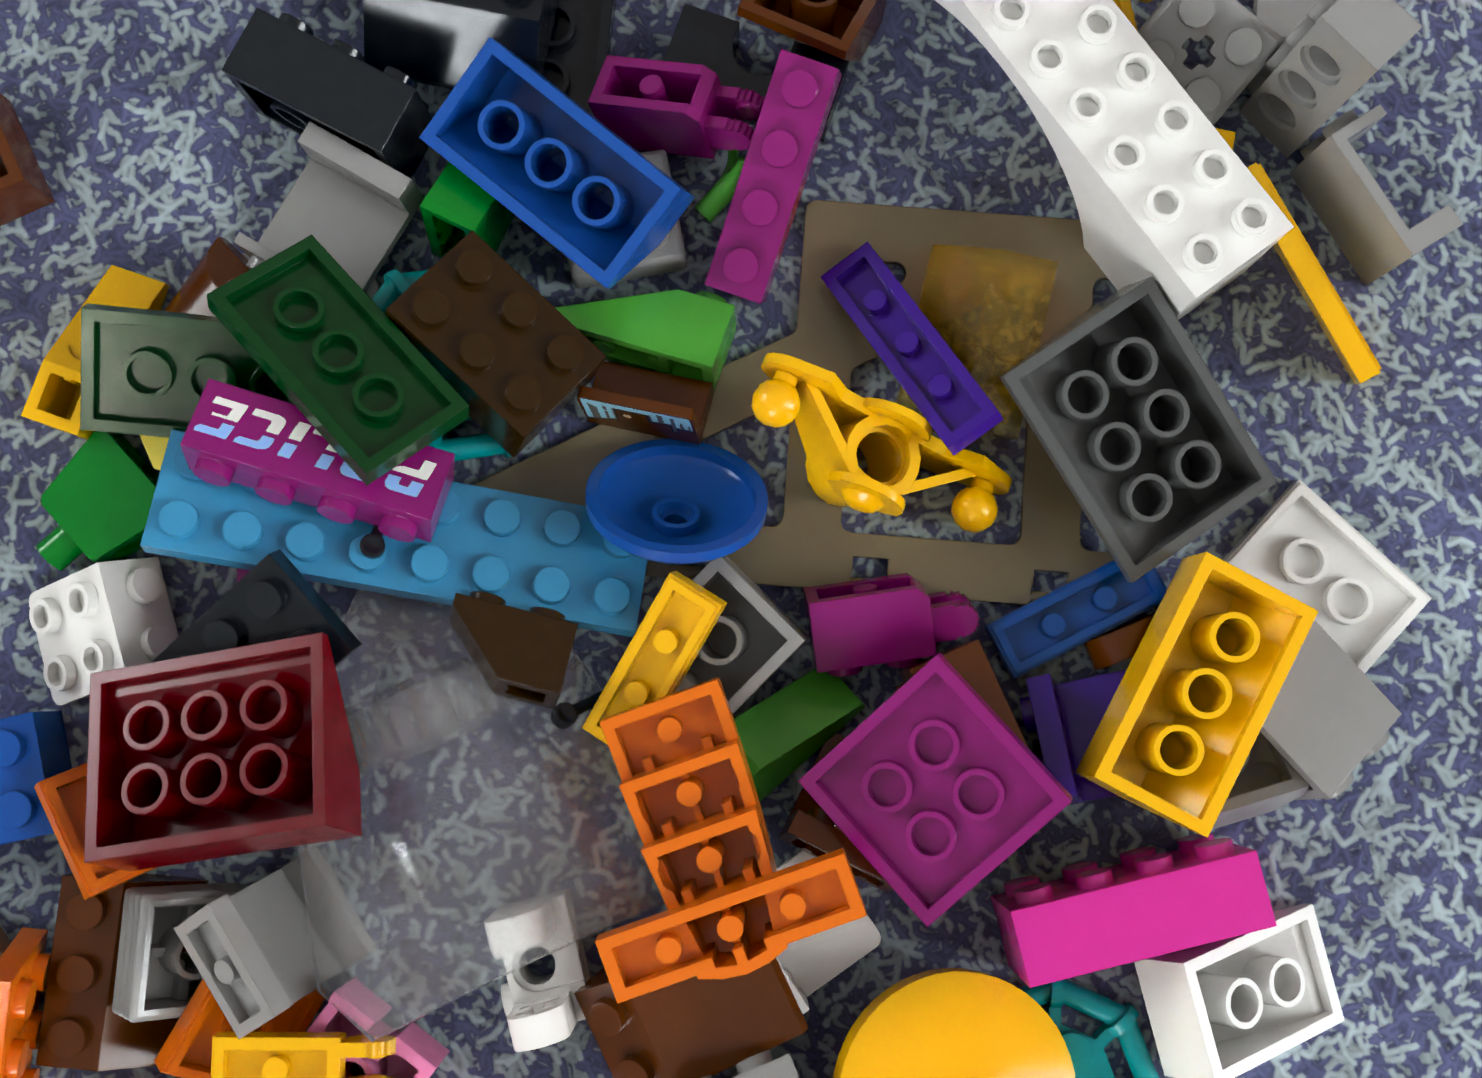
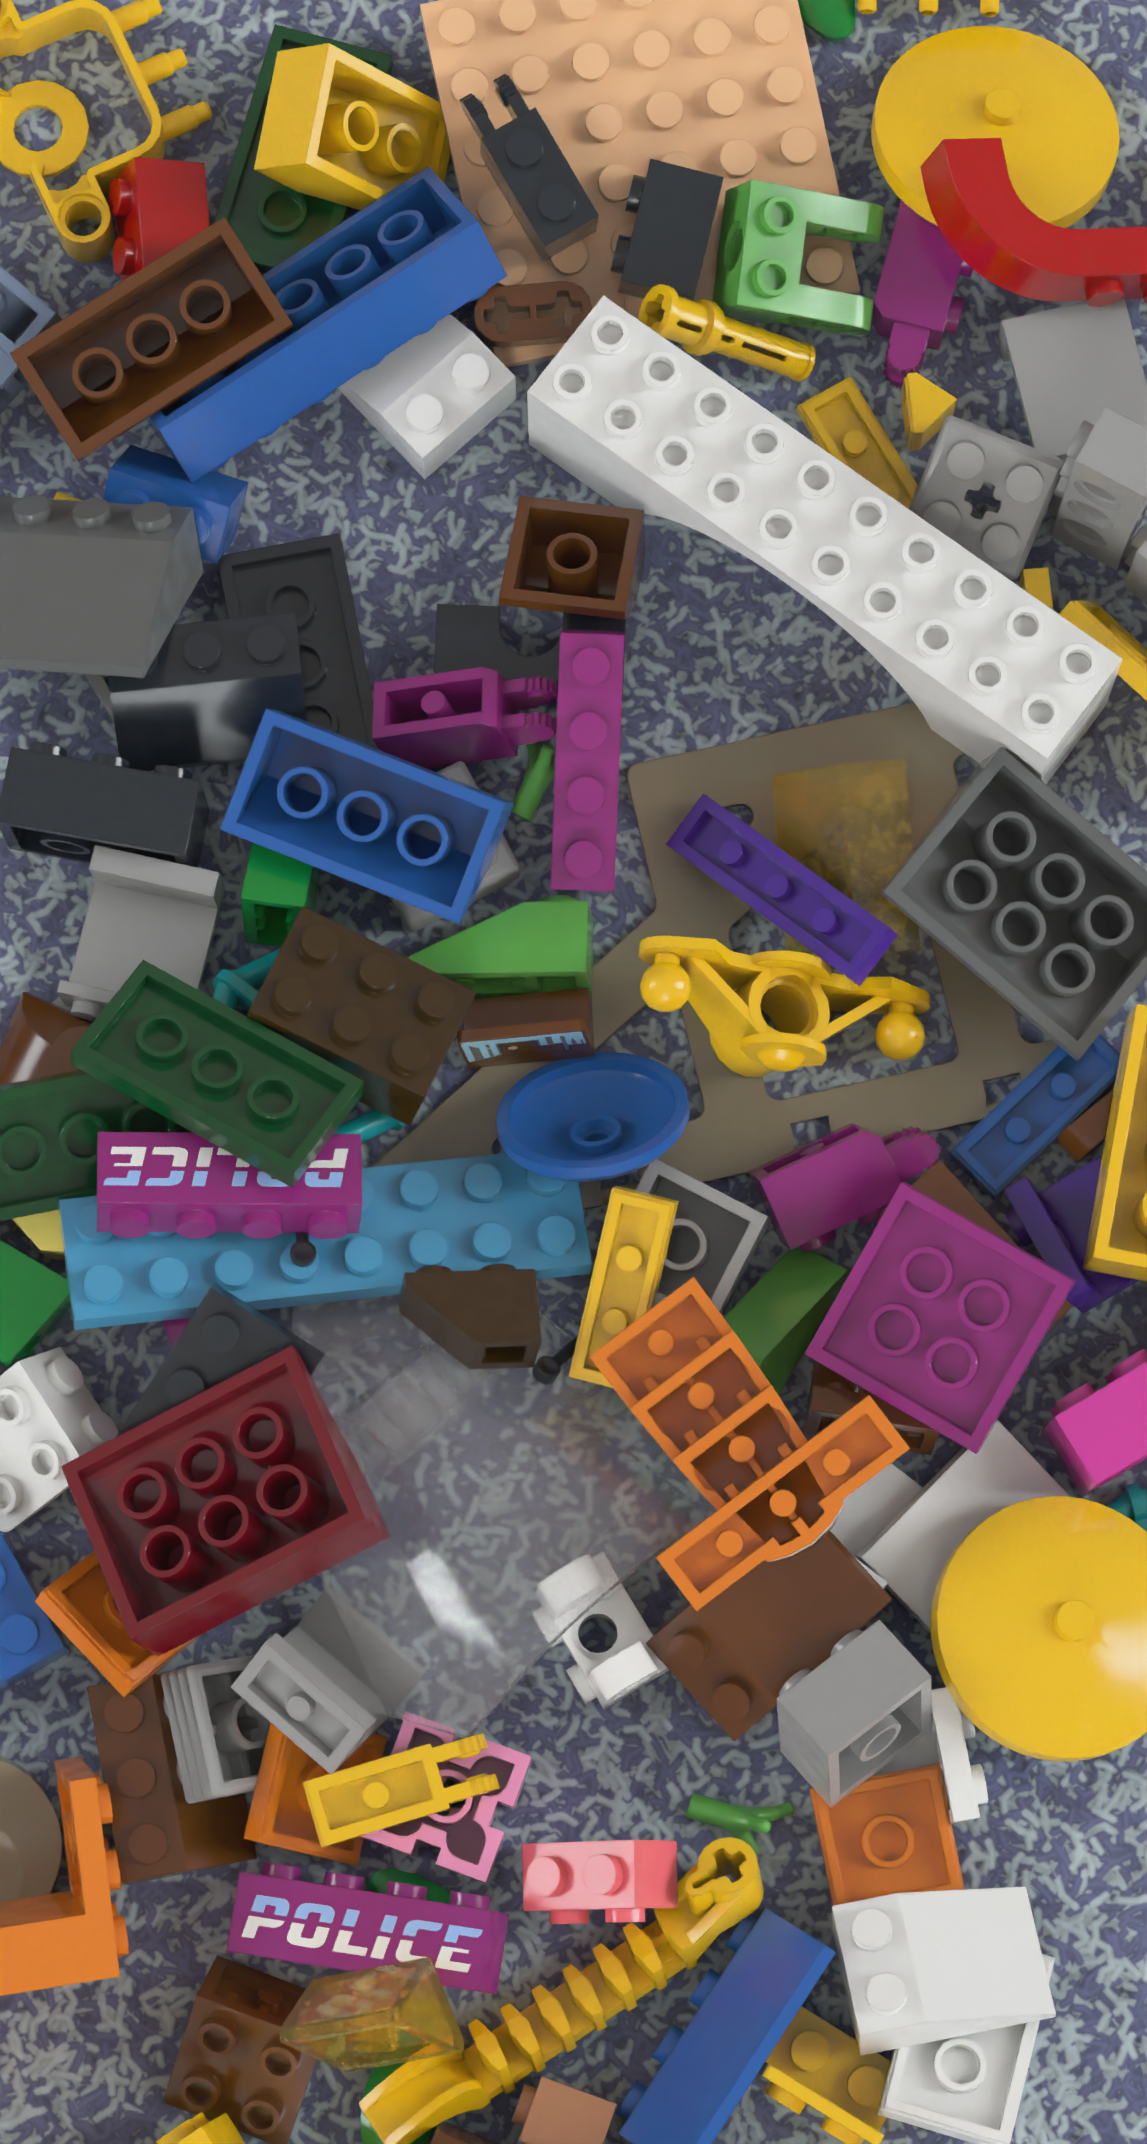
camera: 15 degrees left, 5 degrees down
(883, 951) = (956, 1500): none -> white tile

